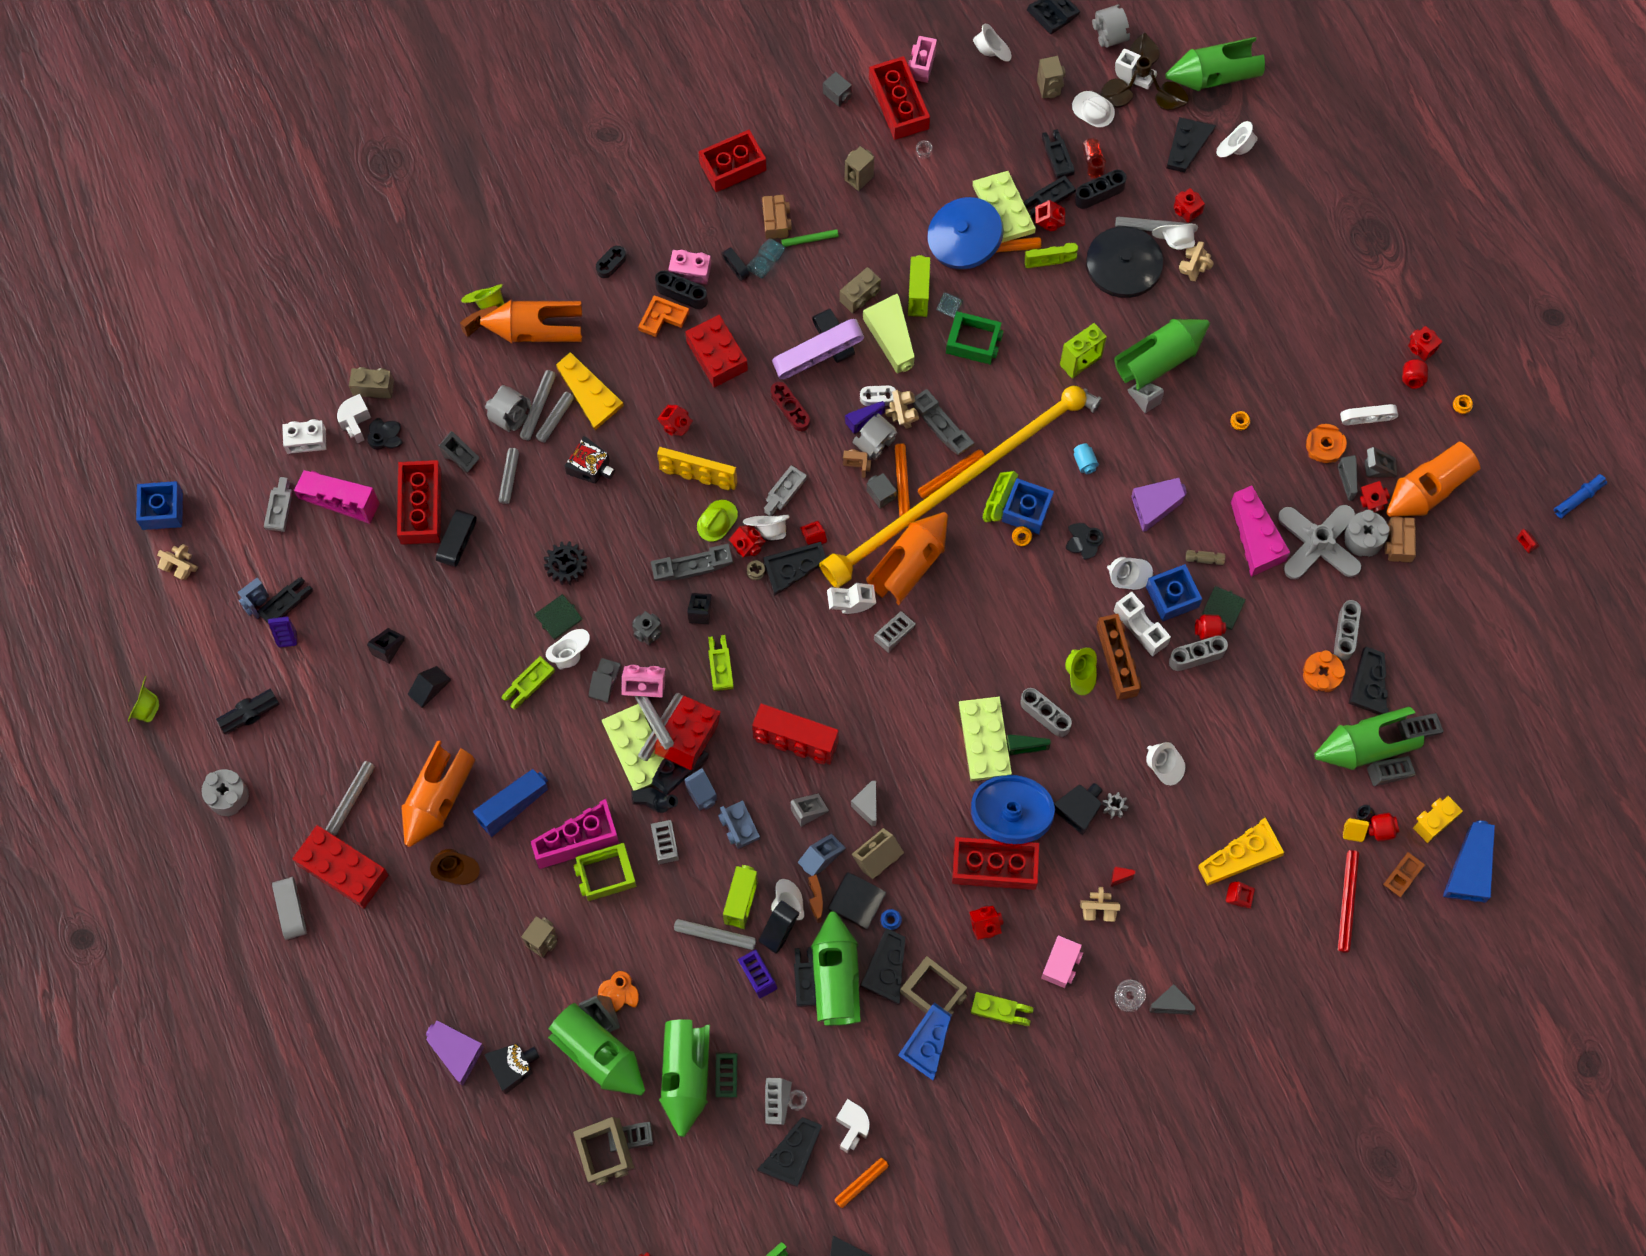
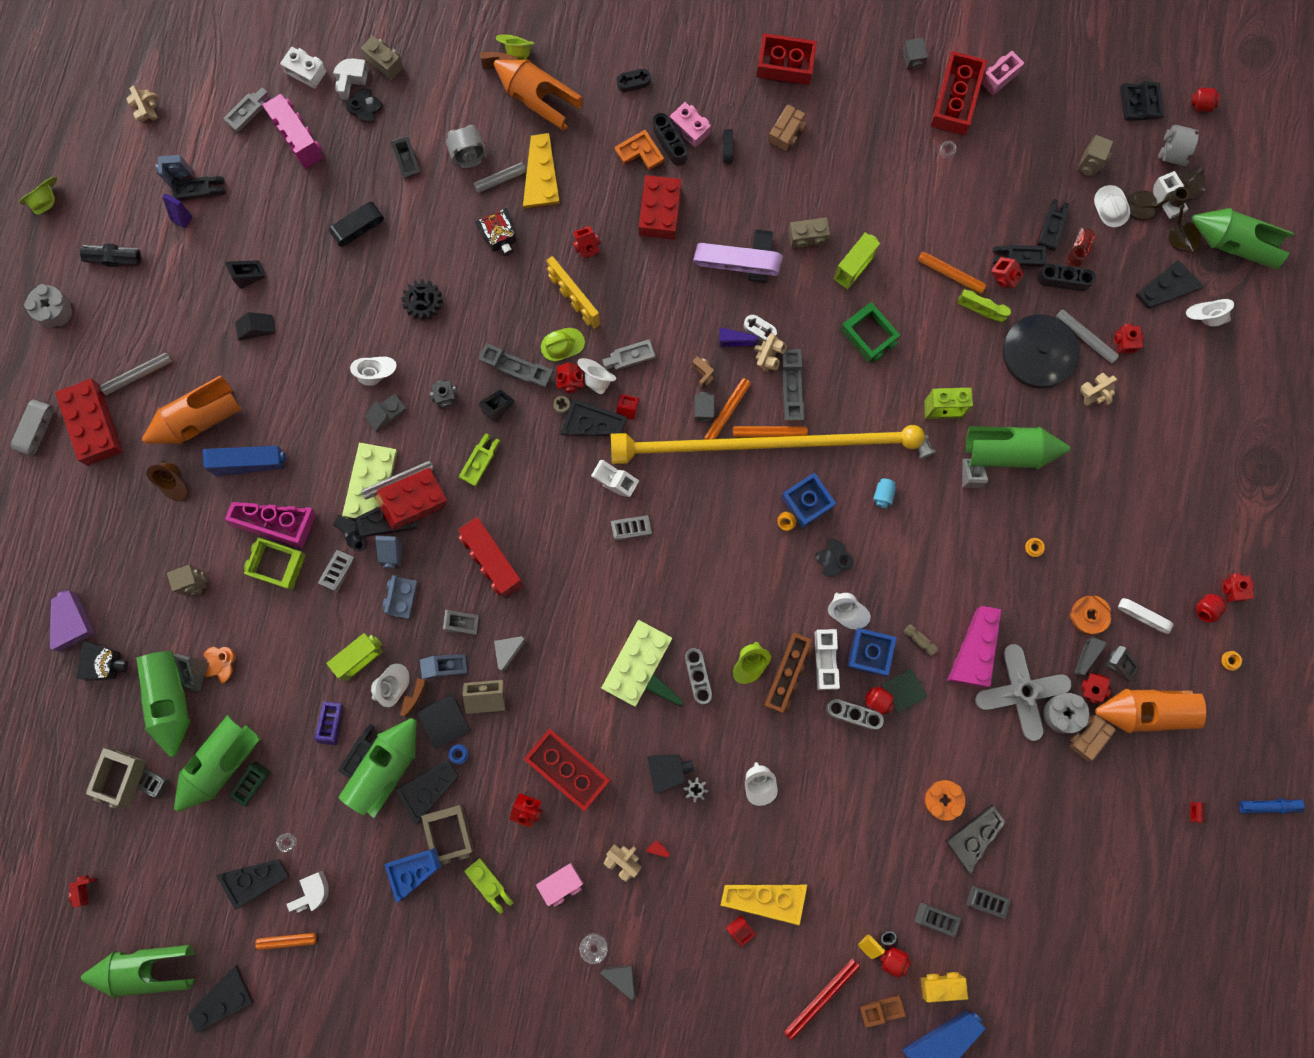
camera: 35 degrees right, 10 degrees up
(159, 505) = (159, 50): blue brick -> none
(419, 502) = (347, 176): red brick -> none
(508, 476) = (431, 201): light grey axle -> none
(529, 681) = (327, 374): lime hinge -> none
(537, 405) = (494, 159): light grey axle -> none
(558, 616) = (388, 338): clear green piece -> none
(643, 681) = (409, 434): bright pink brick -> none
(655, 721) = (389, 473): light grey axle -> none
(715, 934) = (320, 670): light grey axle -> none
(766, 258) = (756, 157): clear light blue slope -> none
(776, 1087) = (269, 832): light grey slope -> none
(779, 927) = (364, 701): black beam -> none
(790, 398) = (680, 278): dark red beam -> none
(809, 238) = (802, 163): bright green bar -> none
(859, 168) = (882, 130): dark tan brick -> none
(875, 436) = (730, 360): light grey brick -> none
(890, 331) = (808, 281): yellowish green slope -> none
(910, 557) = (684, 478): orange piece -> none
(949, 304) = (873, 291): clear light blue slope -> none
(965, 233) = (927, 241): blue dish -> none
(991, 44) = (1068, 96): white piece -> none
(999, 496) = (792, 476): lime hinge -> none
(1004, 196) = (976, 240): yellowish green plate -> none
(1012, 809) = (611, 737): blue dish -> none
(1157, 501) = (916, 567): medium lavender slope -> none
(1177, 236) = (1100, 360): white piece -> none
(1351, 622) = (998, 779): light grey beam -> none
(1361, 744) = (927, 883): bright green piece -> none

